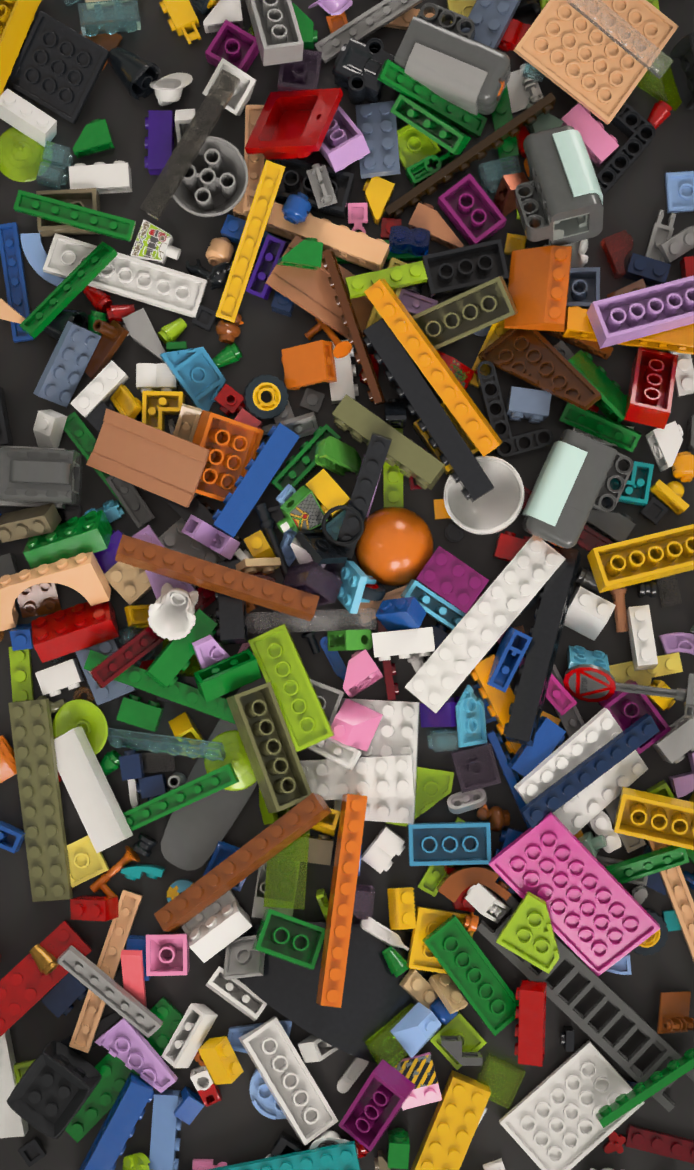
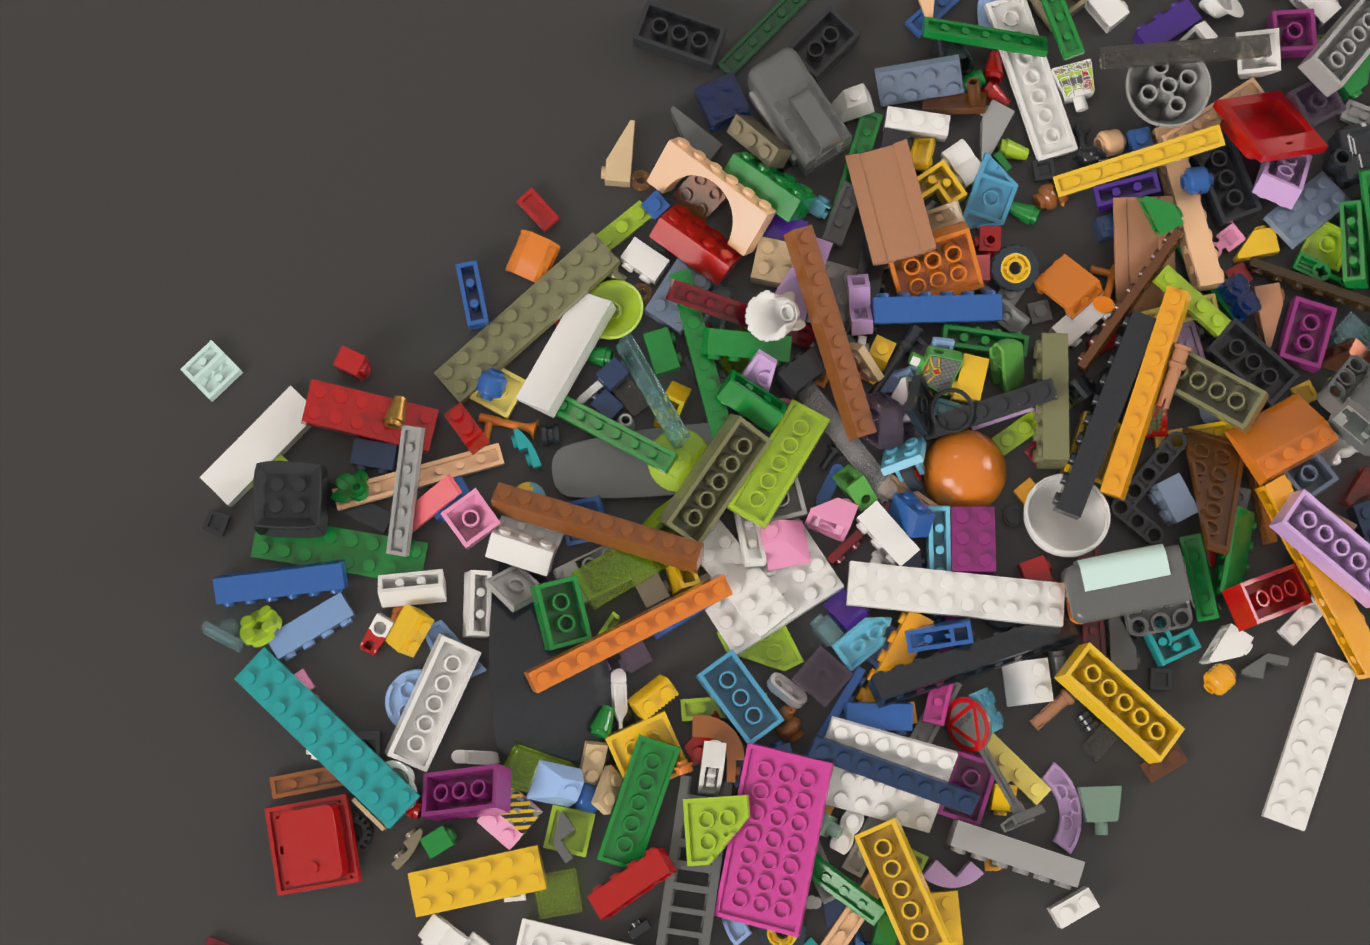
camera: 50 degrees right, 5 degrees down
(73, 865) = (491, 384): none -> blue head
(78, 1031) = (351, 487): none -> green plate
(134, 1050) = (366, 551): lavender wing -> none
(137, 615) = (745, 289): yellow tile -> none
(190, 1106) = (349, 630): blue panel -> none
(315, 1049) = (477, 708): white slope -> none
(321, 186) = (1231, 188): light grey hinge -> none
(383, 849) = (692, 646): white brick -> none
(429, 329) = (1175, 365): none -> nougat pin
(641, 638) = (1040, 745): white brick -> none
(670, 495) = (1184, 684): yellow tile -> none

